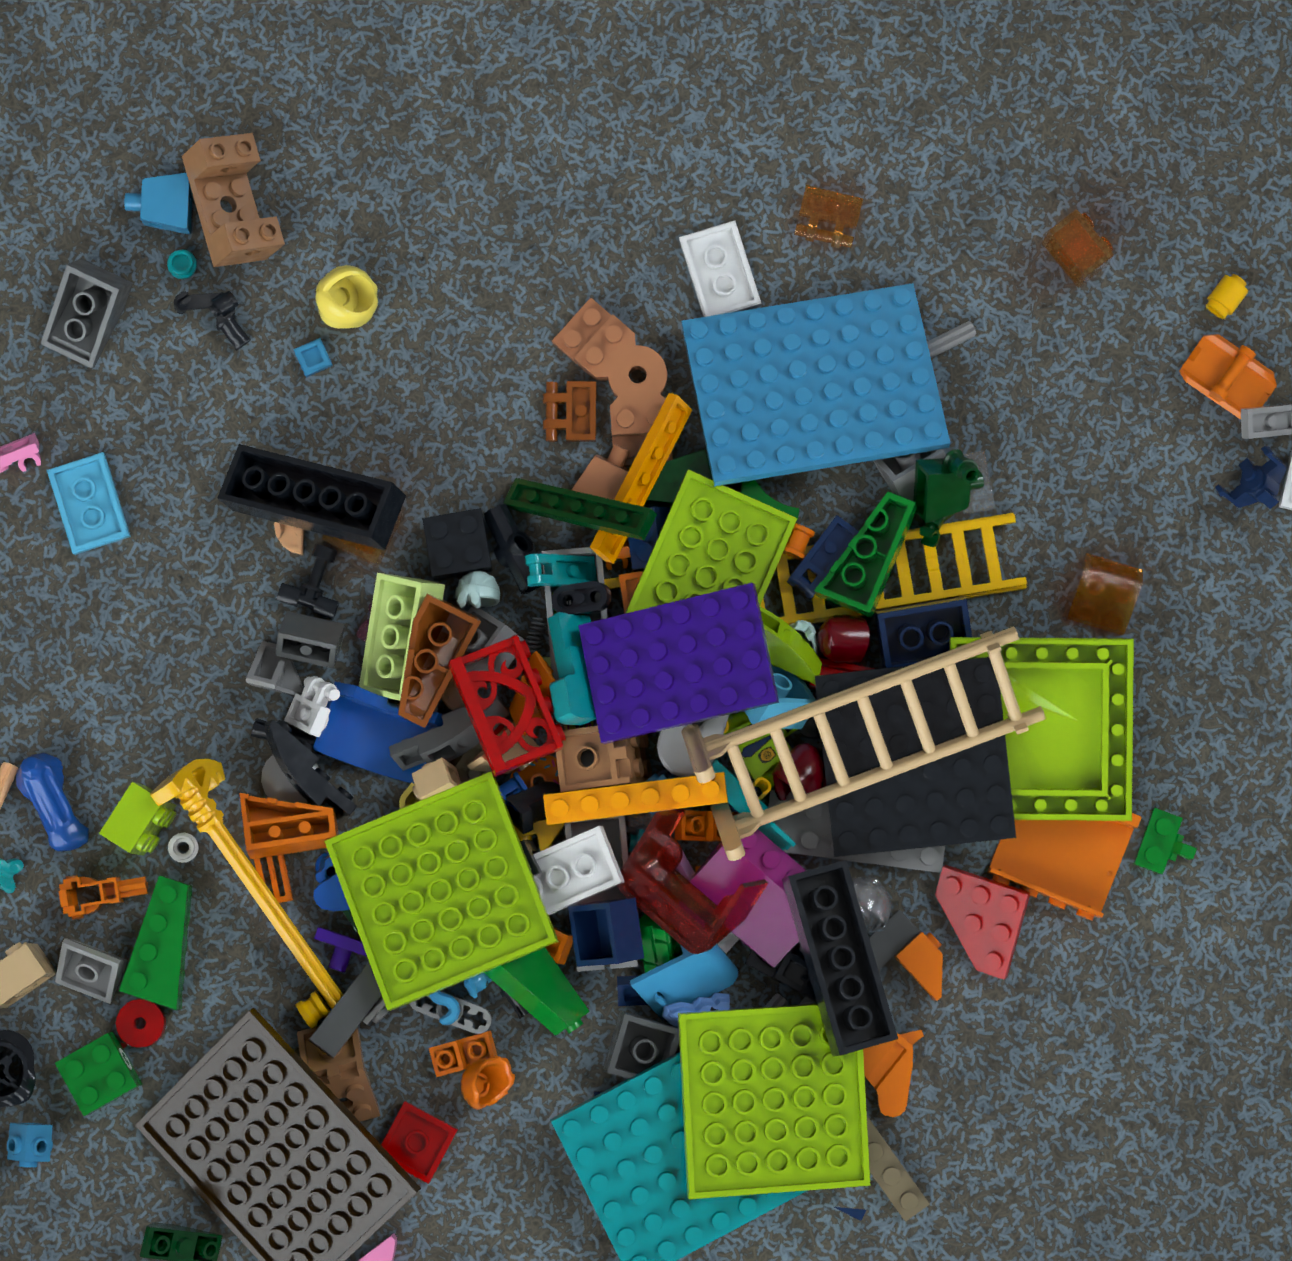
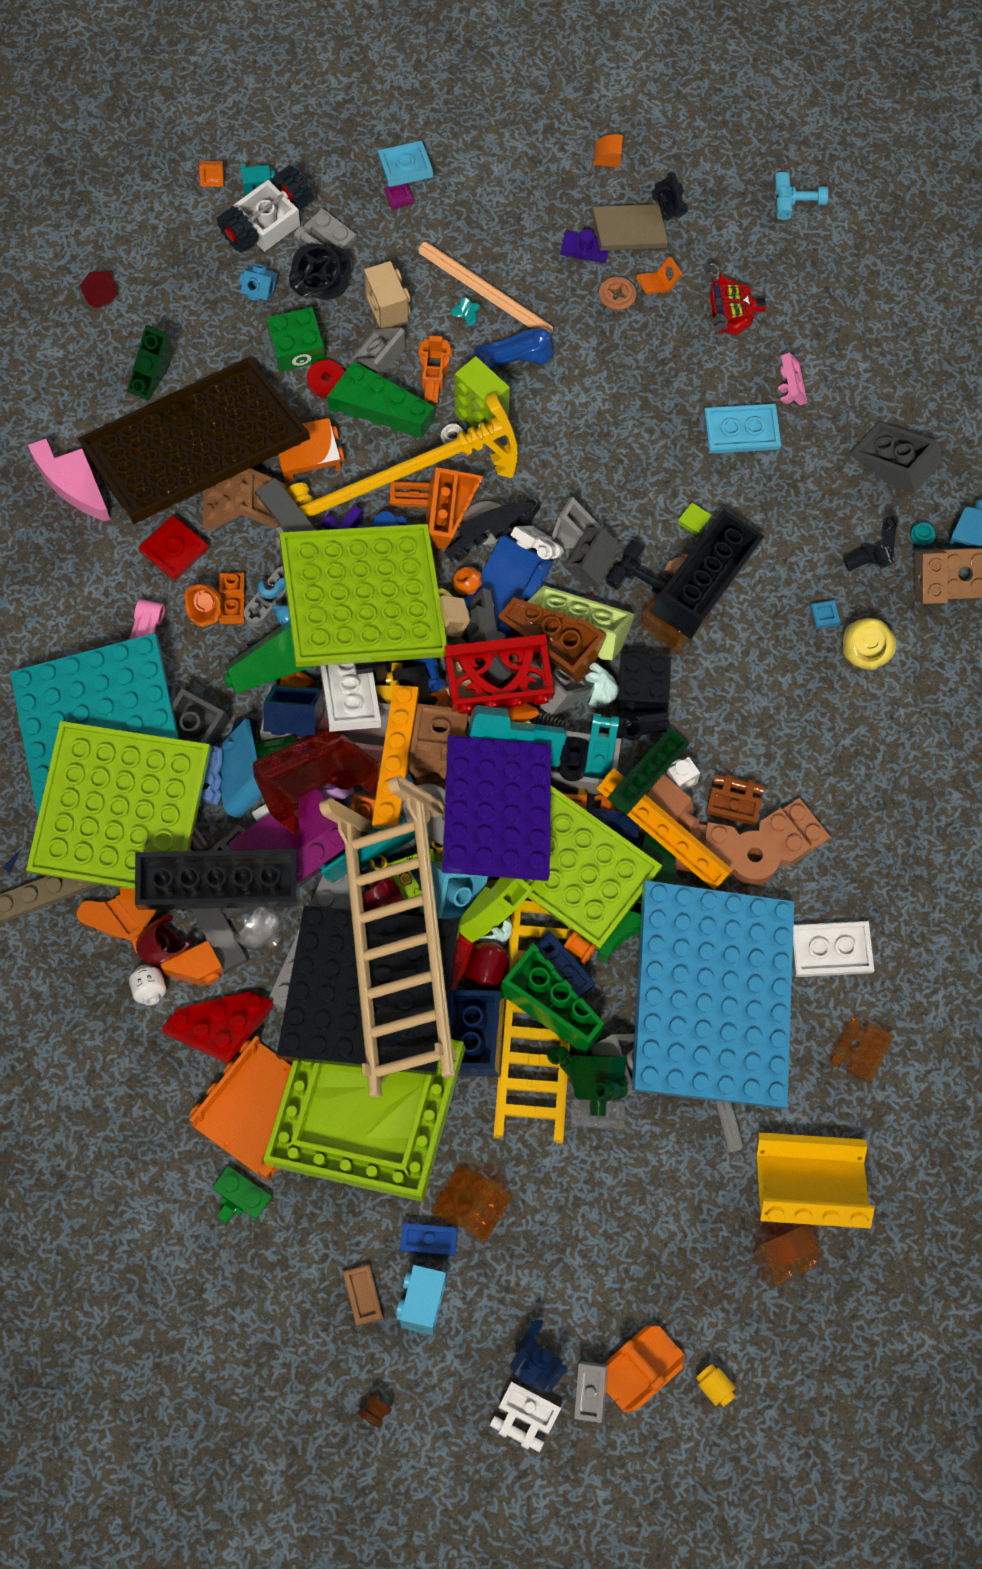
camera: 100 degrees right, 15 degrees down
(225, 533) = (694, 519): none -> lime tile
(232, 1003) = (314, 453): none -> orange panel
(375, 772) = (467, 580): none -> orange plate
(515, 1145) = (147, 618): none -> bright pink piece
(560, 474) = (683, 773): none -> white brick
(913, 1007) = (159, 943): none -> dark red piece
(959, 1010) = (147, 985): none -> white head
(996, 237) = (813, 1180): none -> yellow panel
(1156, 628) = (428, 1239): none -> blue plate
(1227, 615) = (422, 1301): none -> medium azure brick
(1230, 683) = (362, 1295): none -> medium nougat tile

